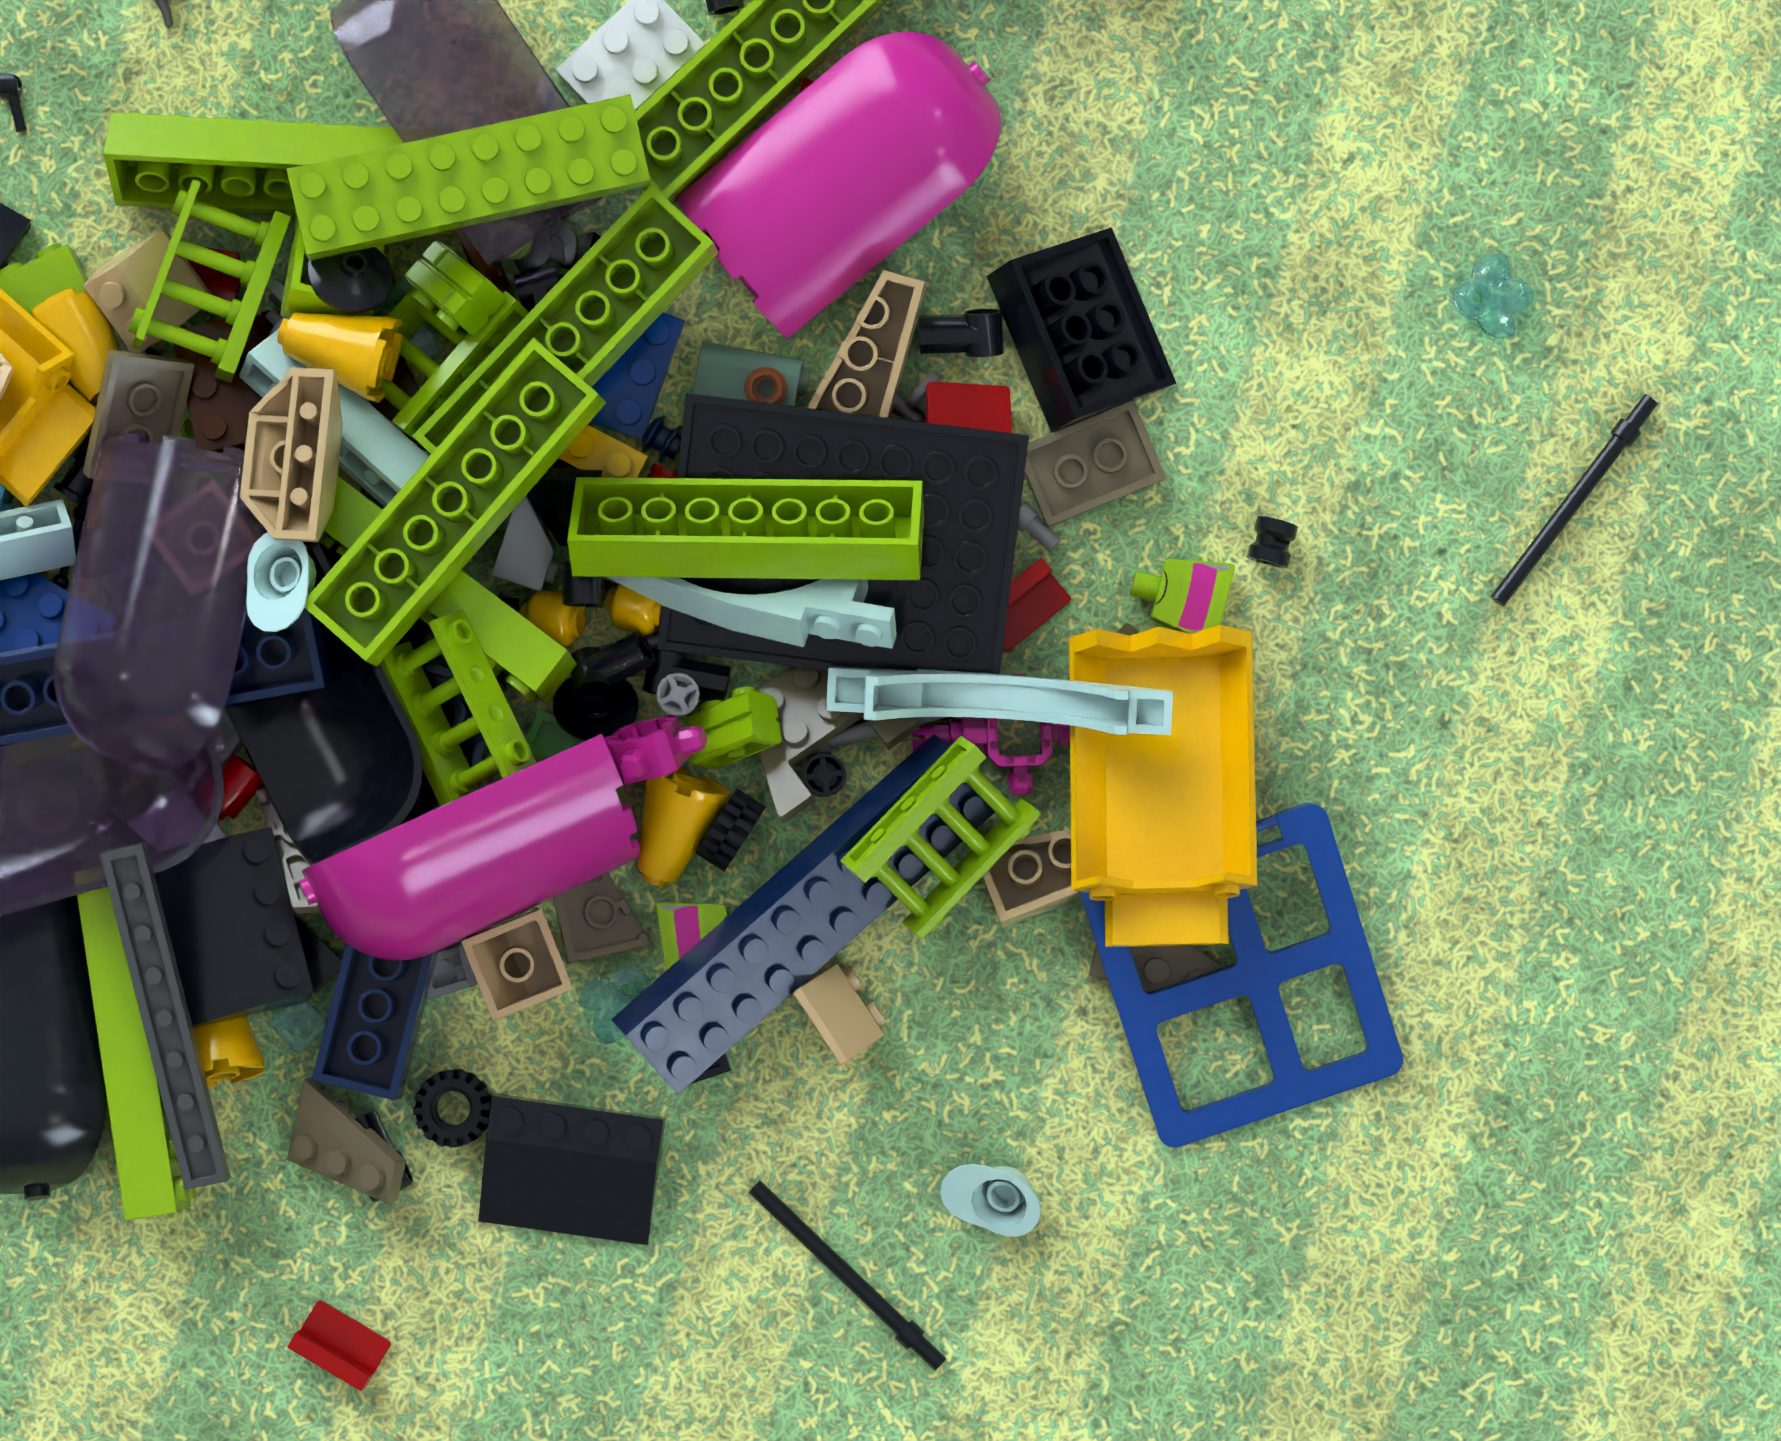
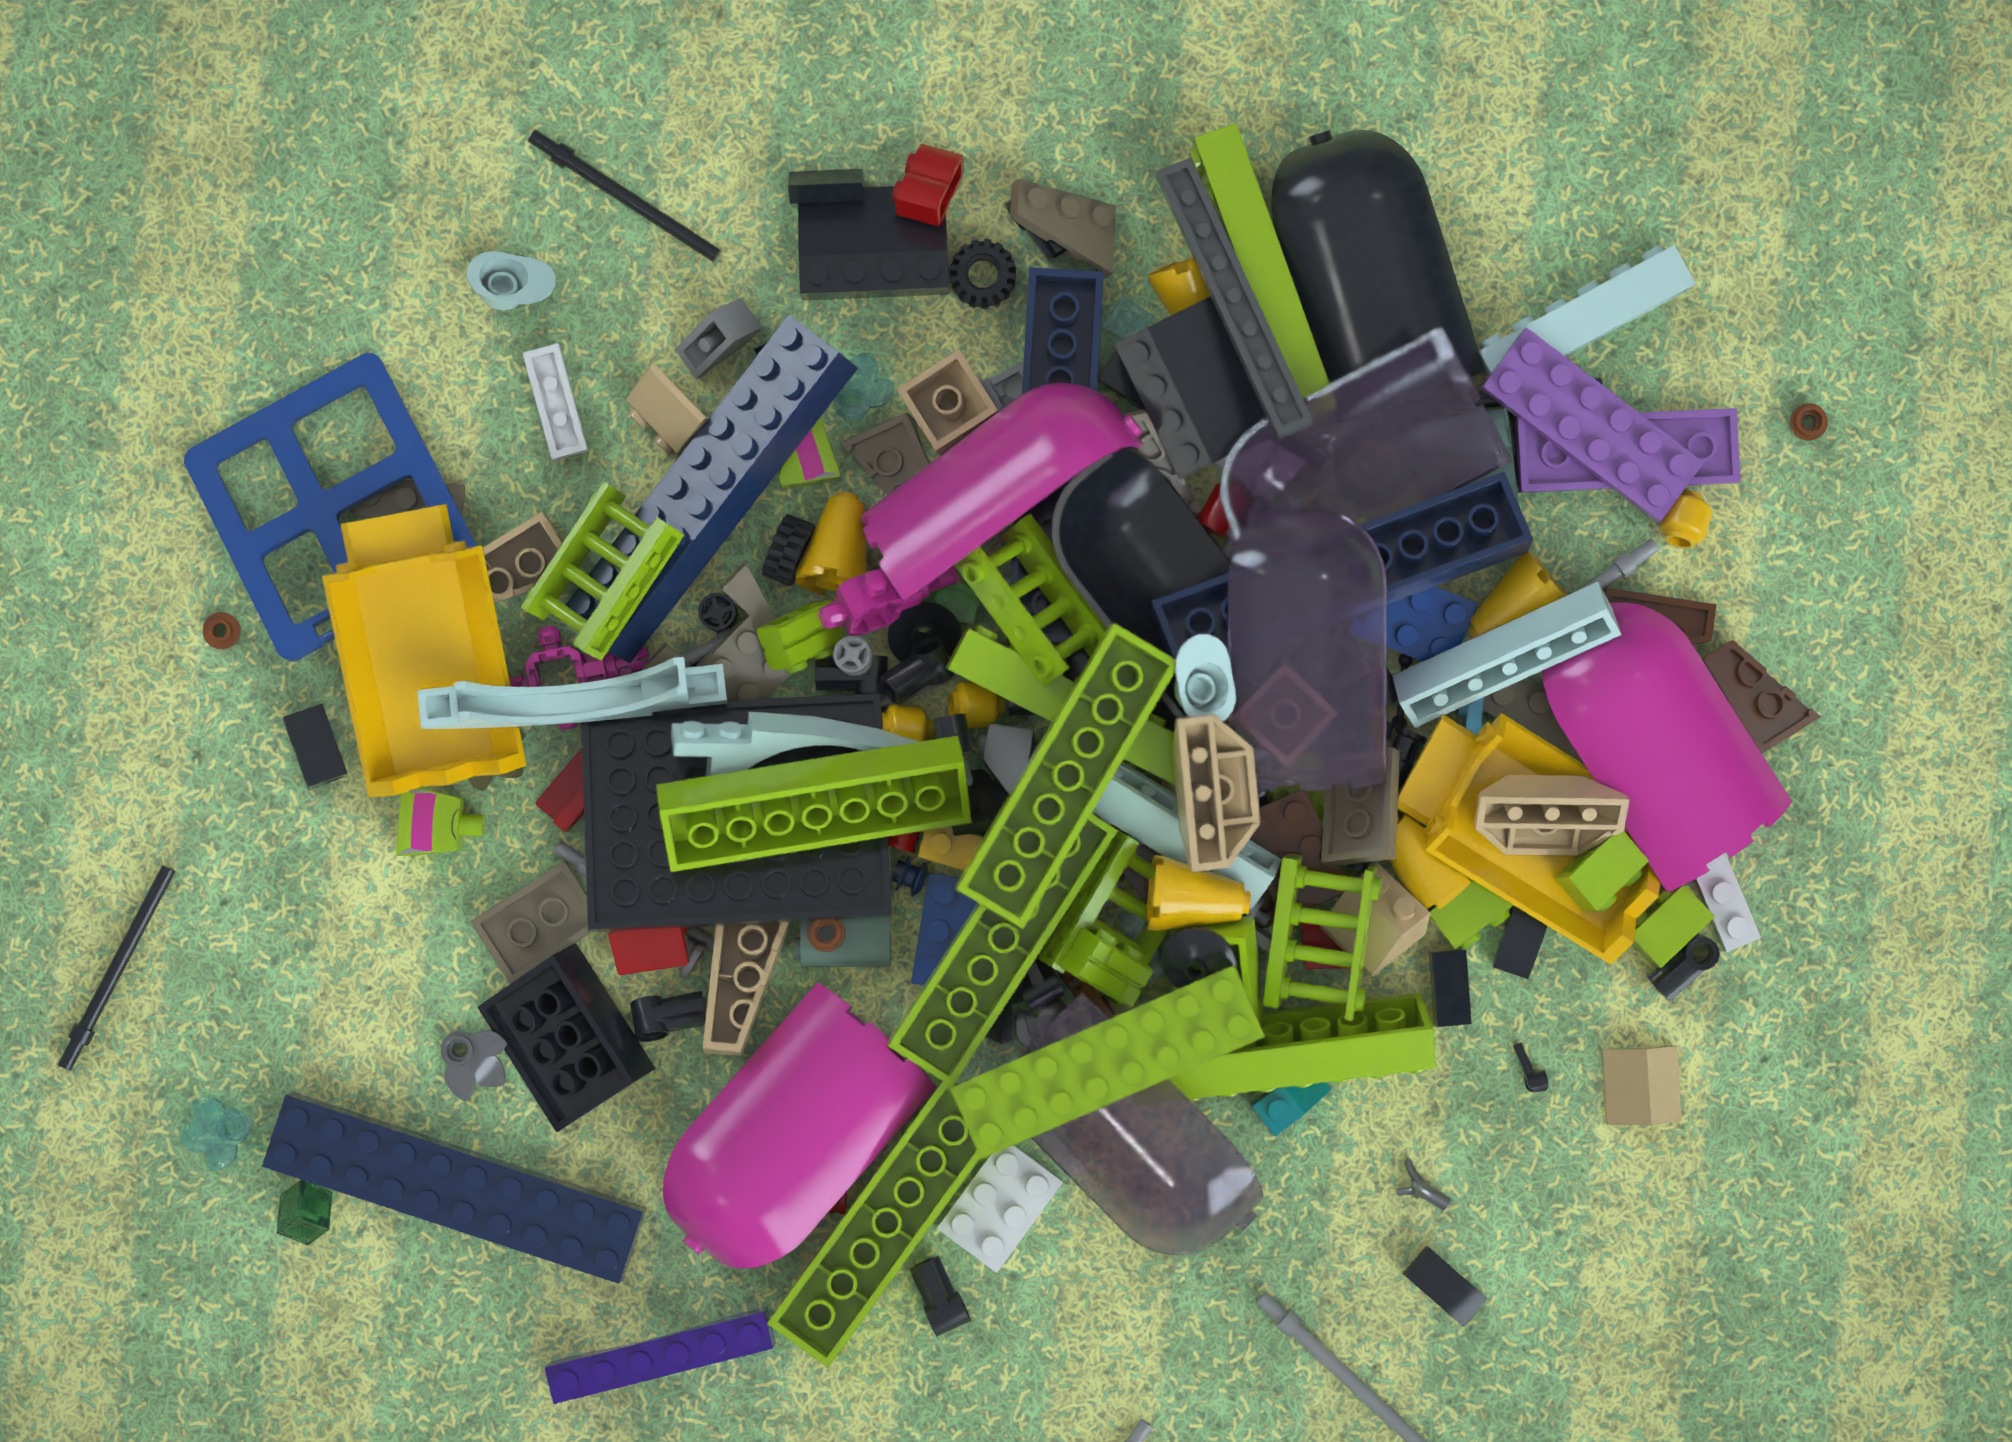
camera: 170 degrees right, 0 degrees up
(83, 205) = (1450, 988): none -> black slope
(291, 102) = (1287, 1104): none -> teal slope
(340, 1345) = (1041, 58): red panel -> none
(494, 1220) = (928, 184): none -> red brick
(613, 1243) = (825, 186): none -> black slope
(768, 1089) = (718, 337): none -> light grey slope
(967, 1050) = (555, 402): none -> white plate
(1187, 317) = (478, 1064): none -> flat silver plate
(1233, 185) = (454, 1187): none -> dark blue brick
(1266, 550) = (369, 883): black wheel -> none
(1307, 706) = (315, 746): none -> black hinge
(1378, 858) = (232, 635): none -> dark orange plate
(1407, 188) = (304, 1212): none -> clear green panel

